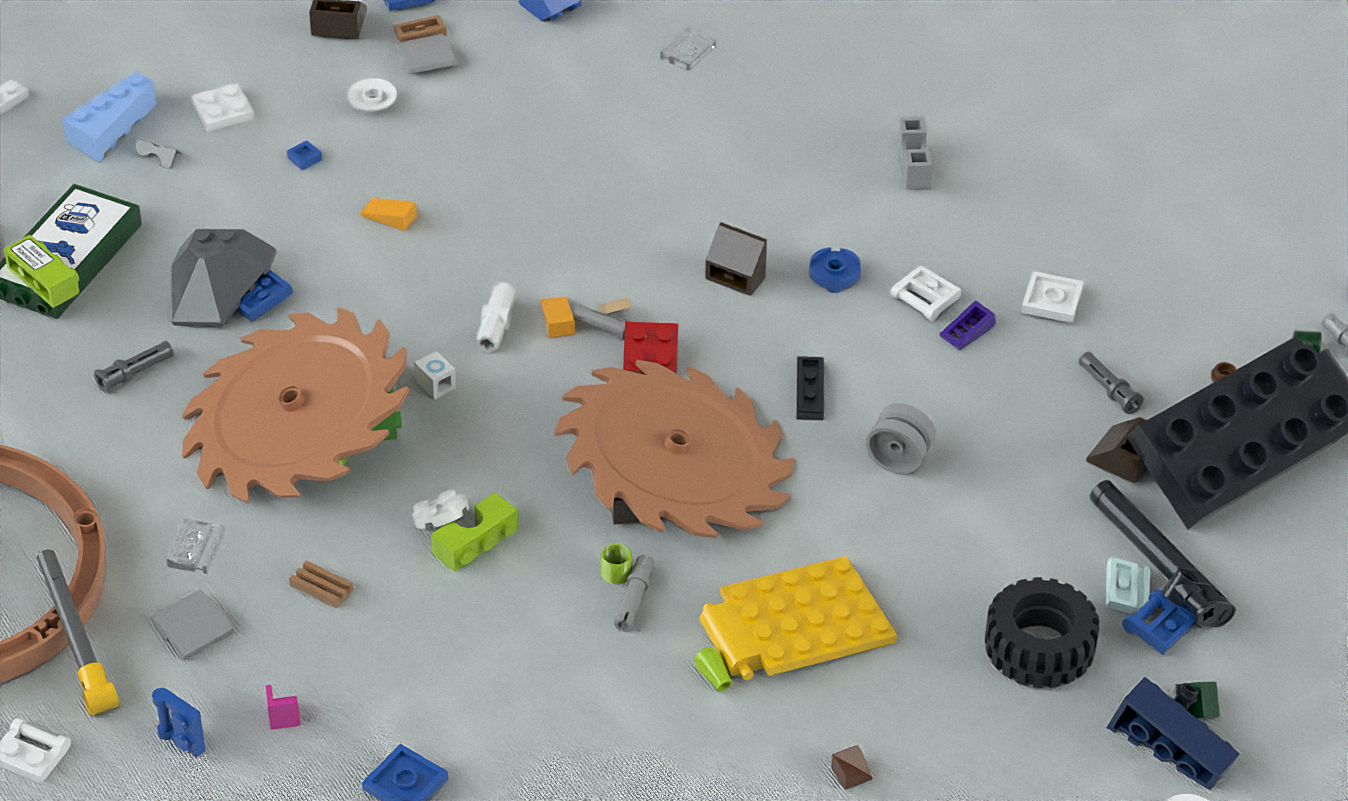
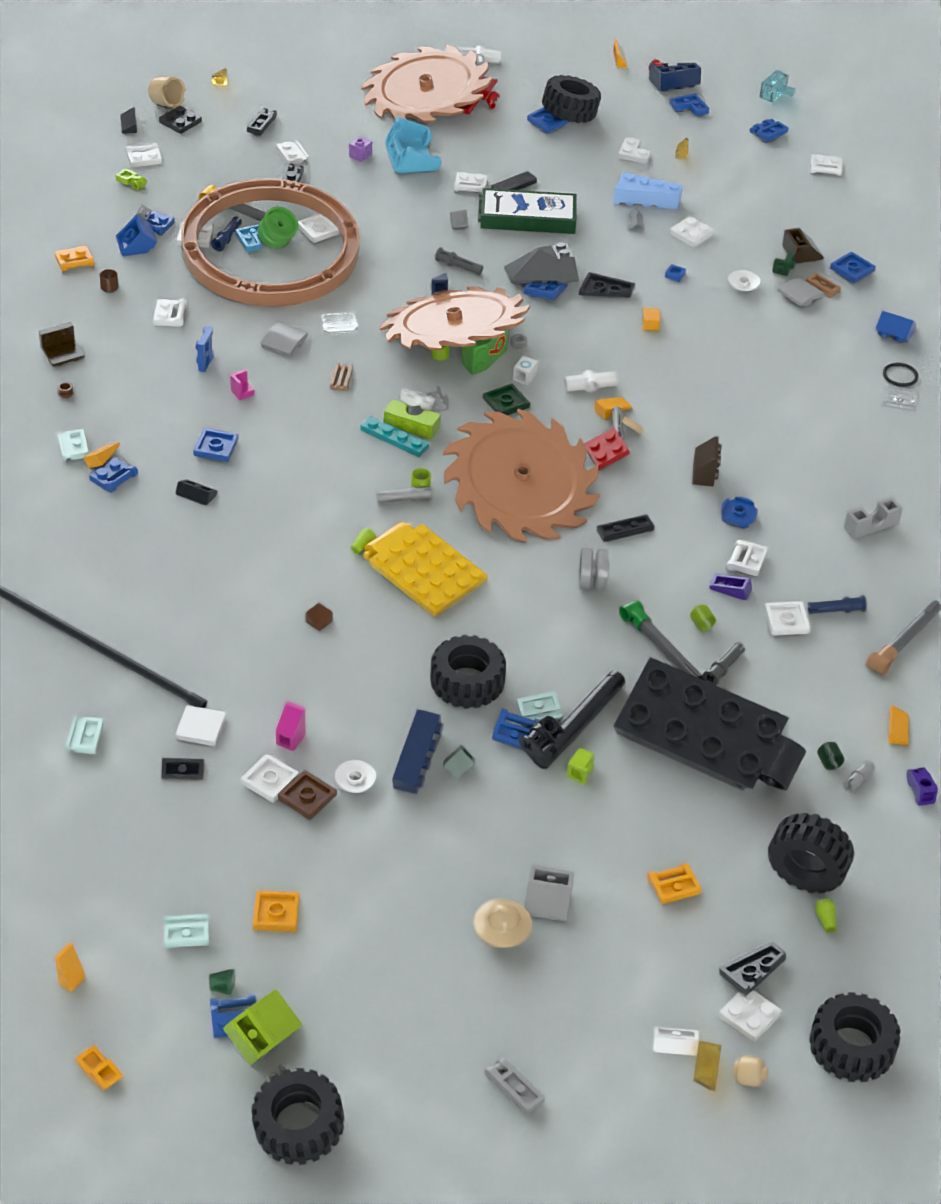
camera: 65 degrees right, 0 degrees up
(30, 331) = (459, 218): none -> light grey tile
(31, 47) = (682, 149): none -> clear yellow slope
(42, 270) = (493, 200): lime brick -> none
(98, 692) = (225, 312): dark grey piece -> none
(178, 402) = (439, 283): none -> dark blue slope
(295, 231) = (605, 286): none -> black wing
(362, 44) = (784, 266): none -> dark green bracket
(451, 482) = (437, 399): none -> light grey piece
(480, 419) = (506, 399): none -> dark green tile
(493, 565) = (394, 436): none -> teal plate
(639, 46) = (897, 383): none -> black tyre
(986, 434) = (635, 614): none -> dark grey piece
(1023, 371) = (703, 617): none -> lime piece
(1050, 236) = (846, 604): none -> dark blue pin
(1159, 242) = (882, 661): none -> piece
(1186, 695) = (448, 748): black pin -> none
(1246, 579) = (581, 765): none -> lime brick
(1270, 274) = (898, 726): none -> light orange slope

